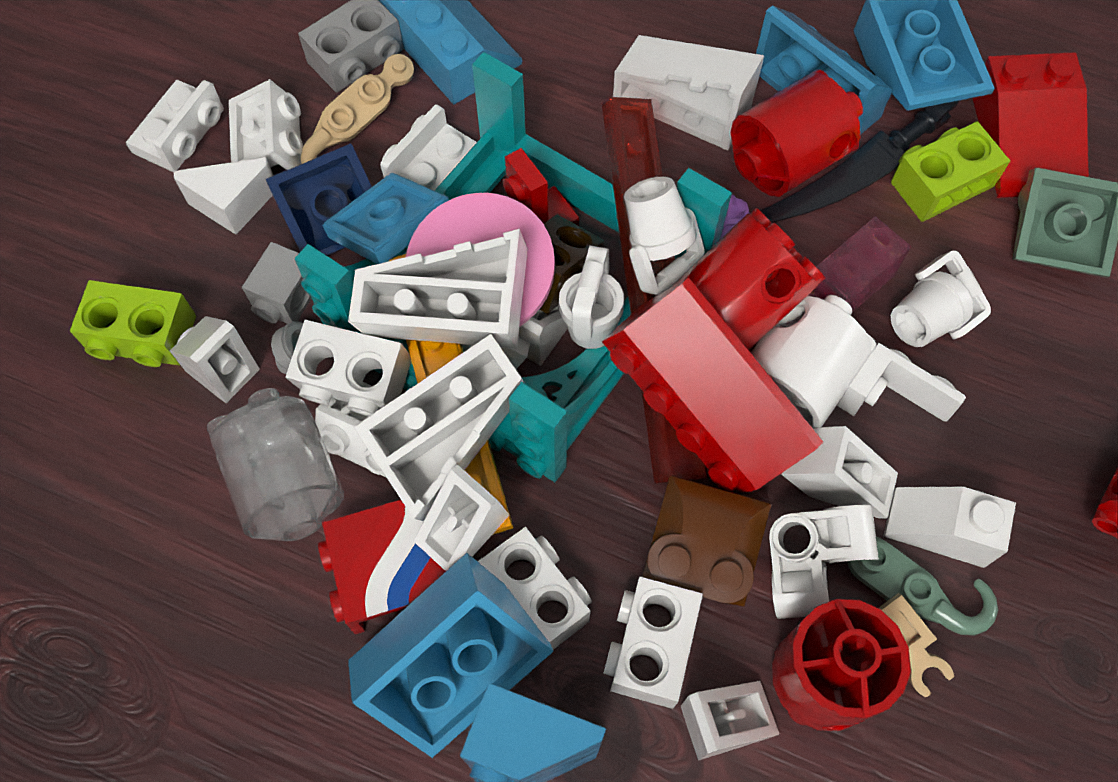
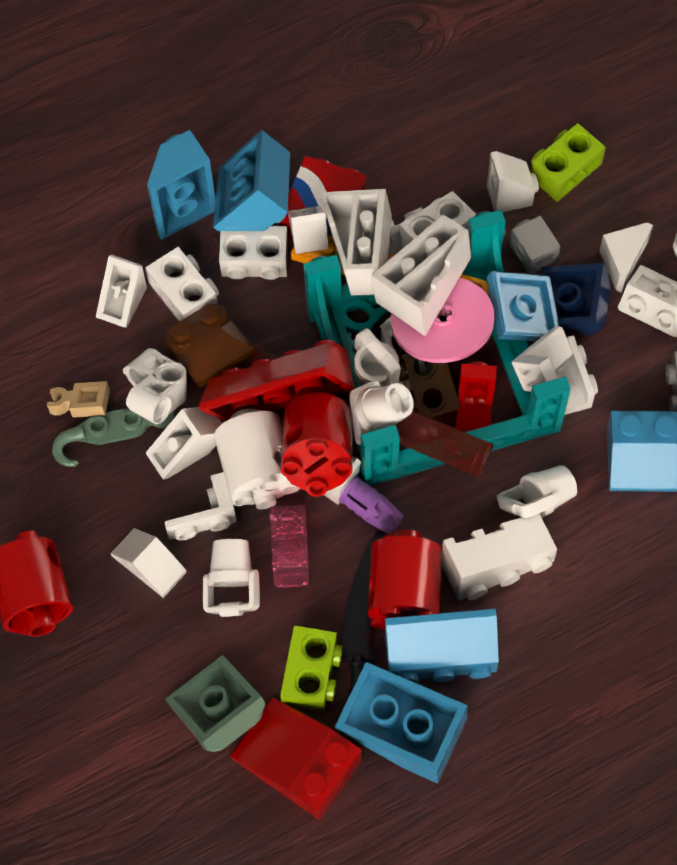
camera: 130 degrees right, 0 degrees up
(275, 467) = (413, 170): clear cylinder -> none
(357, 106) = (638, 360): tan piece -> none
(471, 135) = (542, 358): none -> white bracket
(583, 89) = (540, 492): none -> white piece
(841, 666) = (95, 340): red cylinder -> none
(952, 522) = (114, 472): white slope -> none
(1002, 412) = (149, 561): none -> white slope

